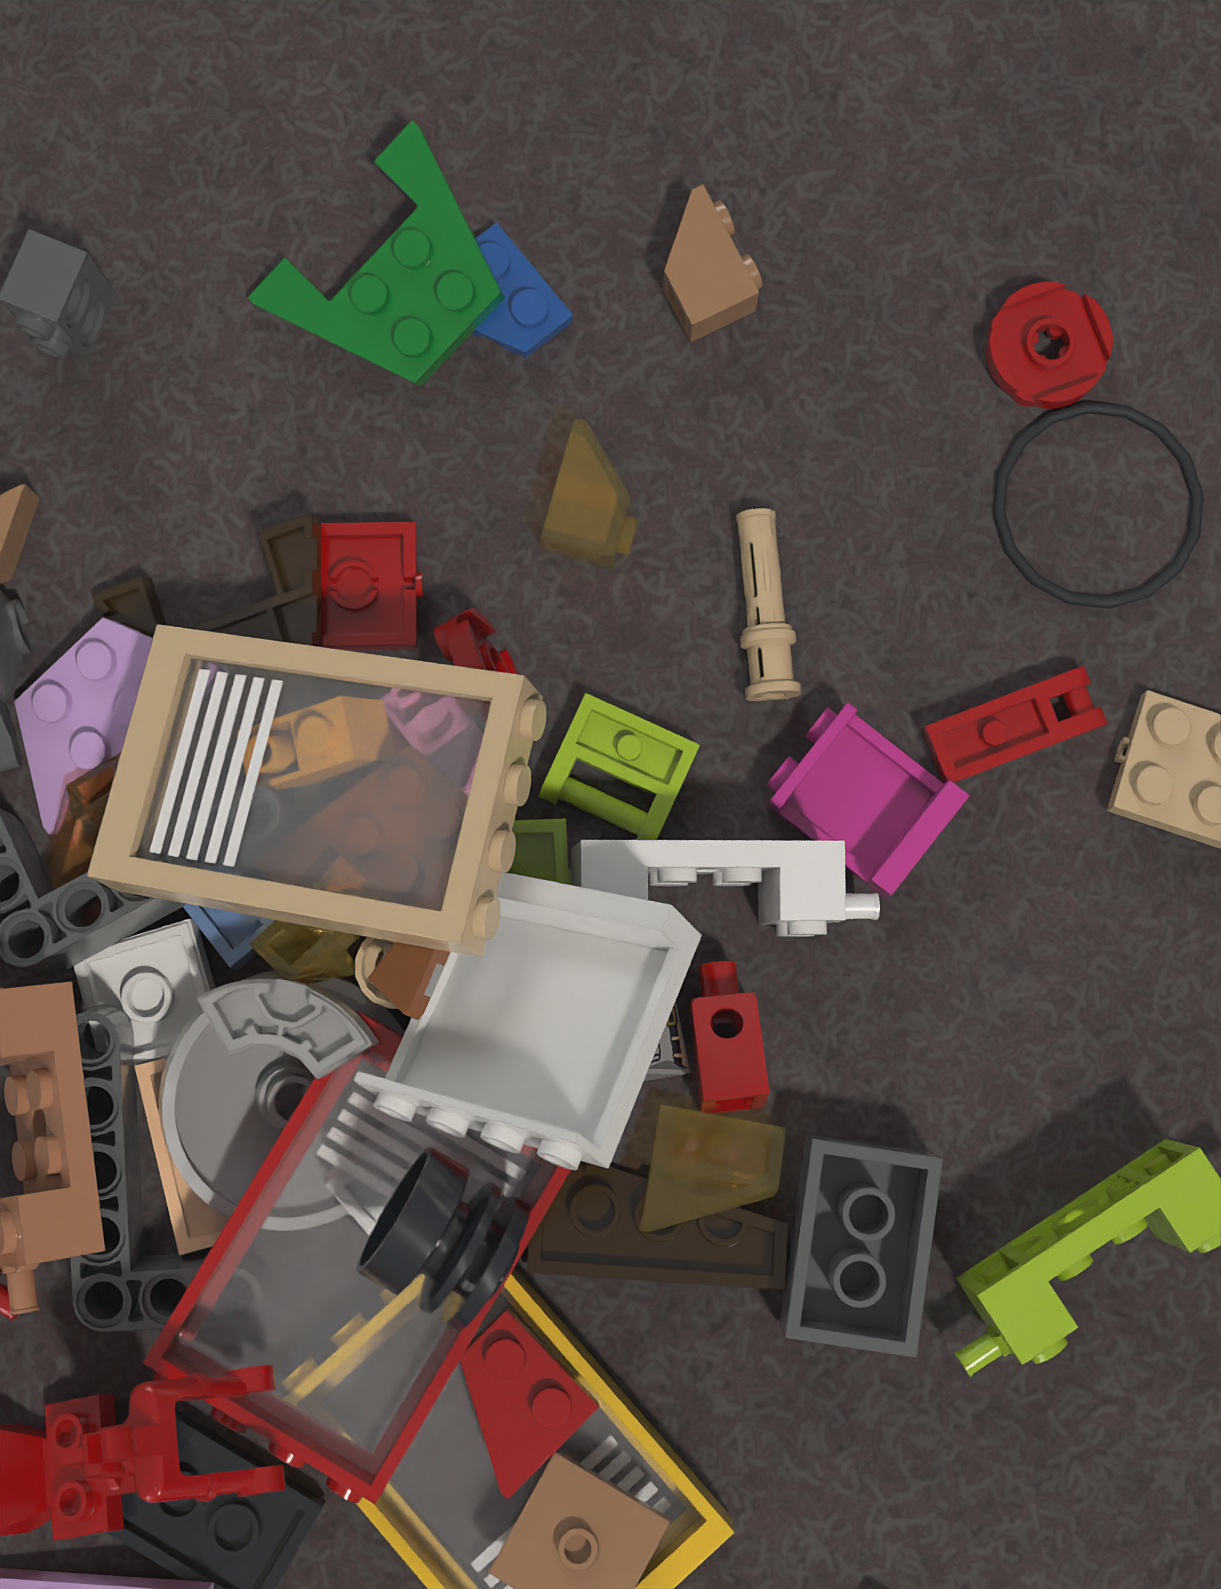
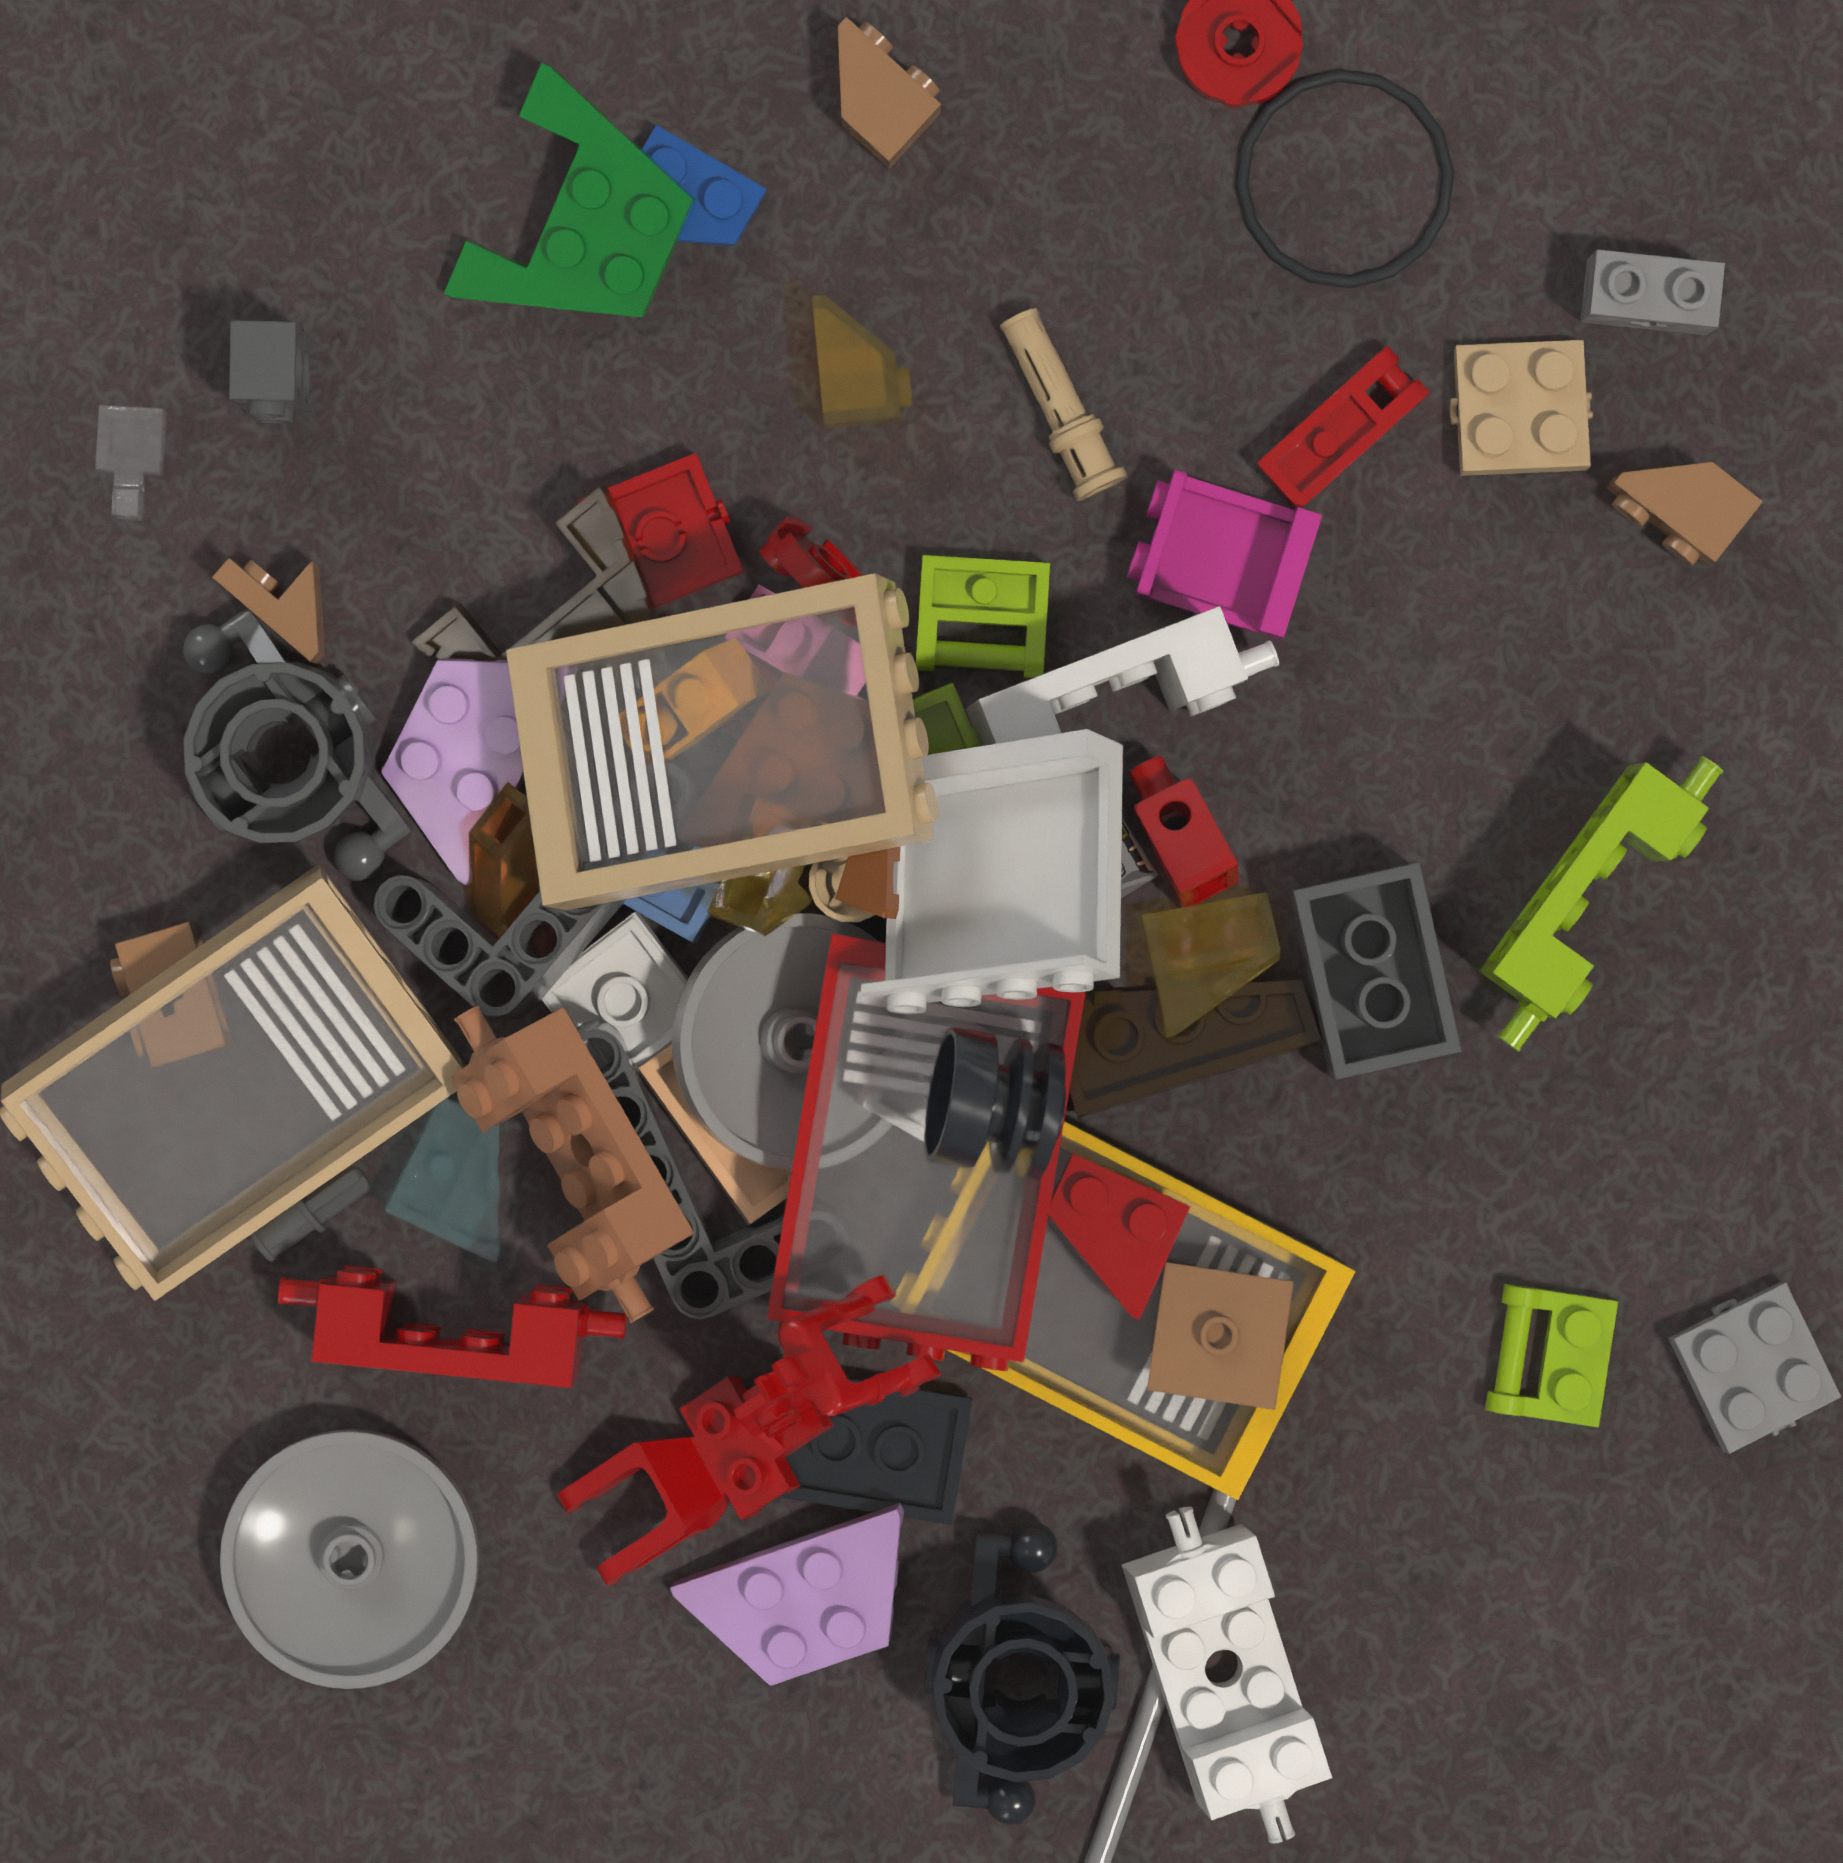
camera: 20 degrees left, 5 degrees up
(290, 1018) = (773, 963): light grey tile -> none

